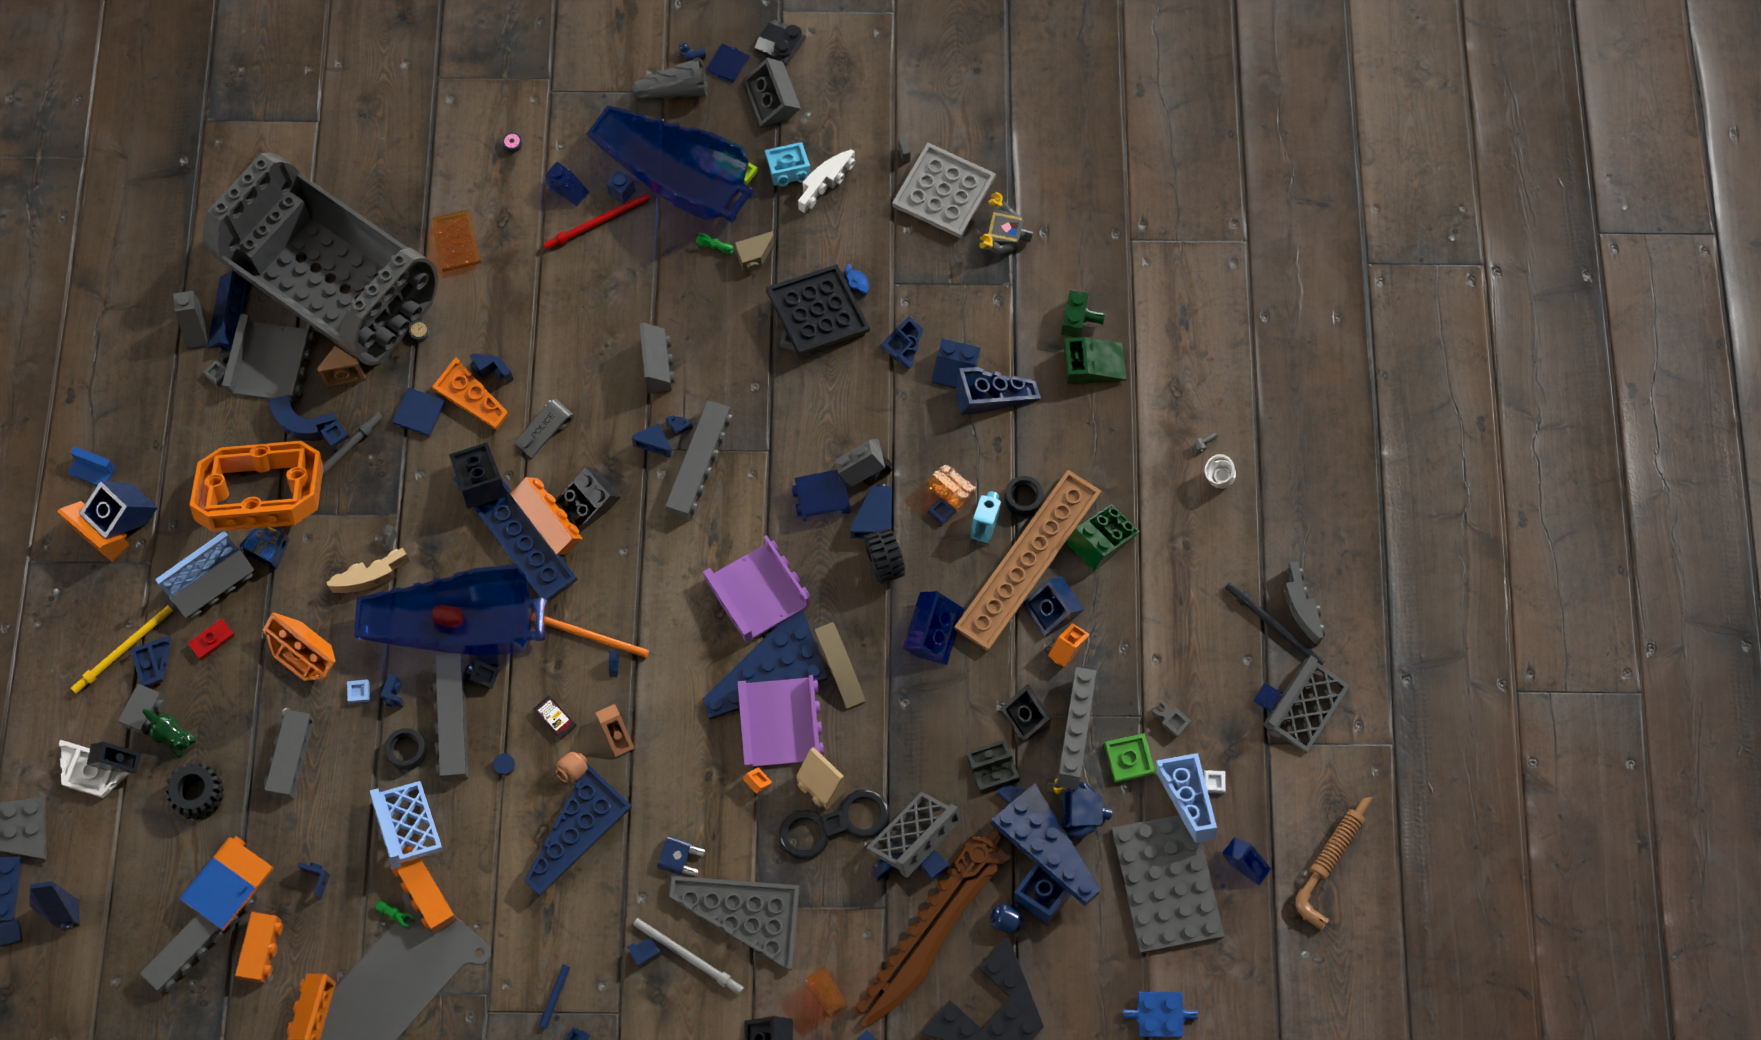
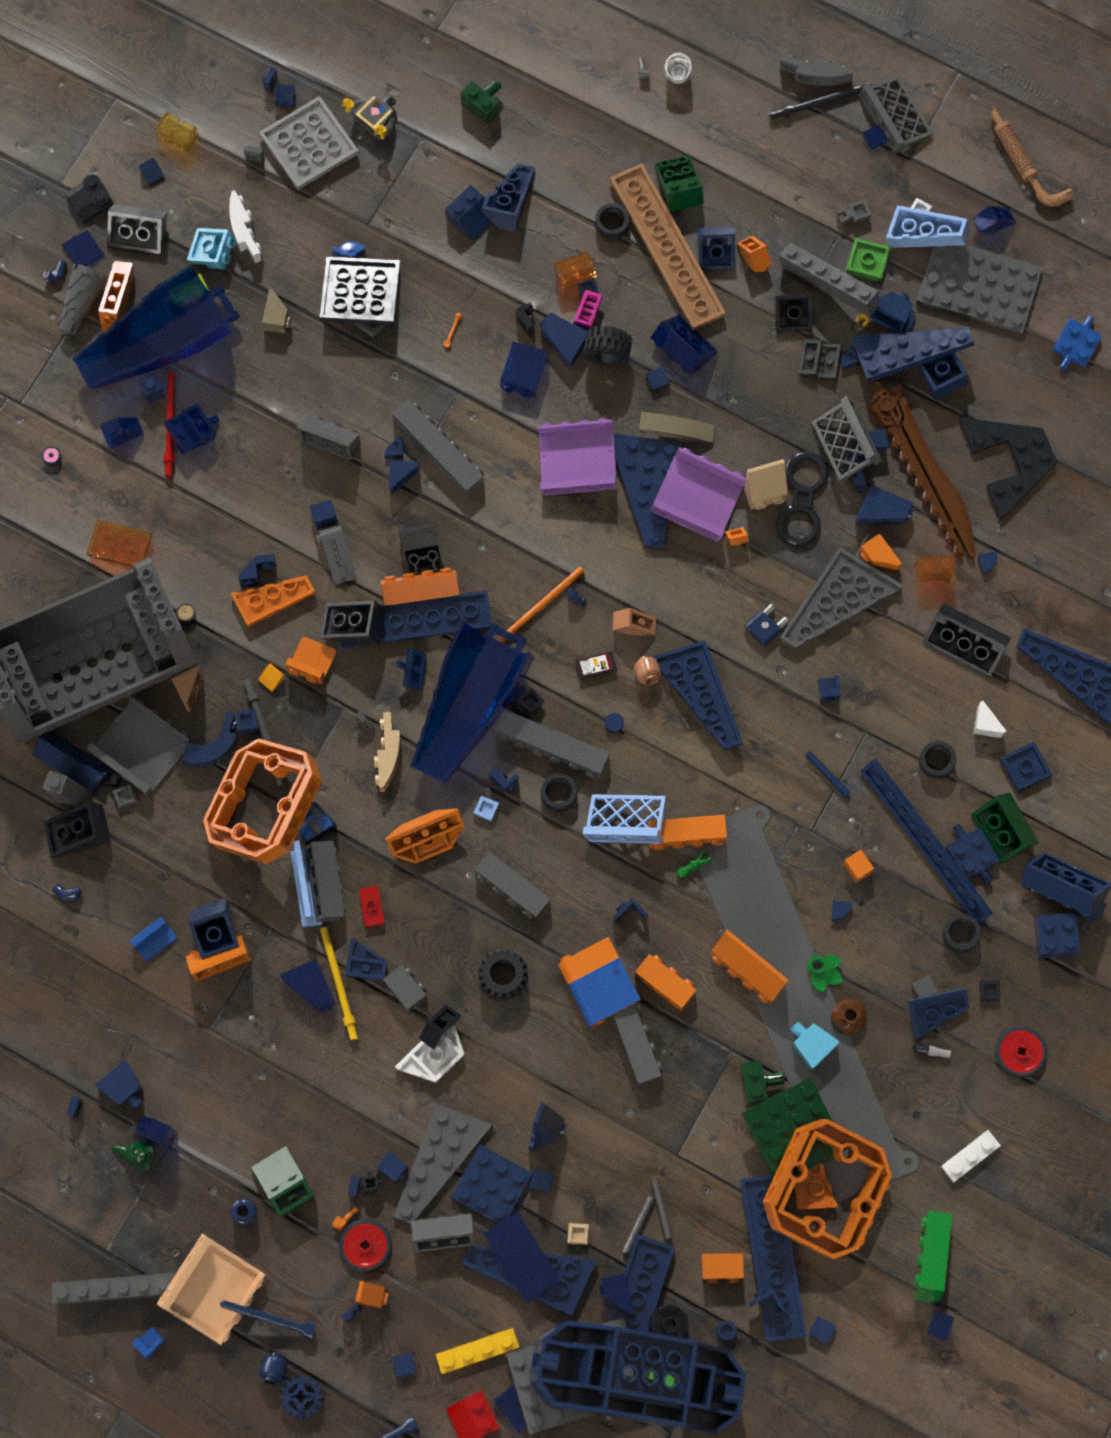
camera: 60 degrees left, 5 degrees up
(99, 374) = (67, 895): none -> dark blue arm
(106, 625) = (310, 985): none -> clear blue slope
(163, 350) = (77, 829): none -> black slope
(166, 729) = (436, 975): dark green animal -> none
(393, 435) = (271, 677): none -> light orange slope
(419, 412) = (261, 647): dark blue tile -> none
(425, 460) = (311, 660): none -> orange bracket
(447, 616) = (464, 705): clear red brick -> none
(462, 553) = (413, 669): none -> dark blue plate
(575, 394) = (323, 514): none -> dark blue panel
(599, 240) = (191, 428): none -> clear blue plate
(695, 109) = (116, 294): none -> orange slope
(705, 240) = (240, 348): green piece -> none
(722, 978) = (881, 640): light grey bar -> none
(812, 414) = (447, 343): none -> orange hinge
(813, 927) = (879, 554): none -> orange slope
(836, 76) = (151, 171): none -> dark blue slope
(861, 462) = (517, 322): dark grey slope -> none
(864, 908) = (884, 509): none -> dark blue slope
(884, 622) = (657, 379): none -> dark blue tile
(886, 75) = (180, 136): none -> clear yellow piece
(903, 342) = (425, 242): dark blue slope -> none
(903, 516) = (583, 321): none -> dark pink slope
(979, 144) = (284, 95): none -> dark blue slope
(985, 517) = (616, 257): medium azure torso -> none
(987, 124) = (270, 79): none -> dark blue tile
(1006, 918) = (946, 411): dark blue head -> none
(1093, 360) = (528, 111): dark green slope -> none

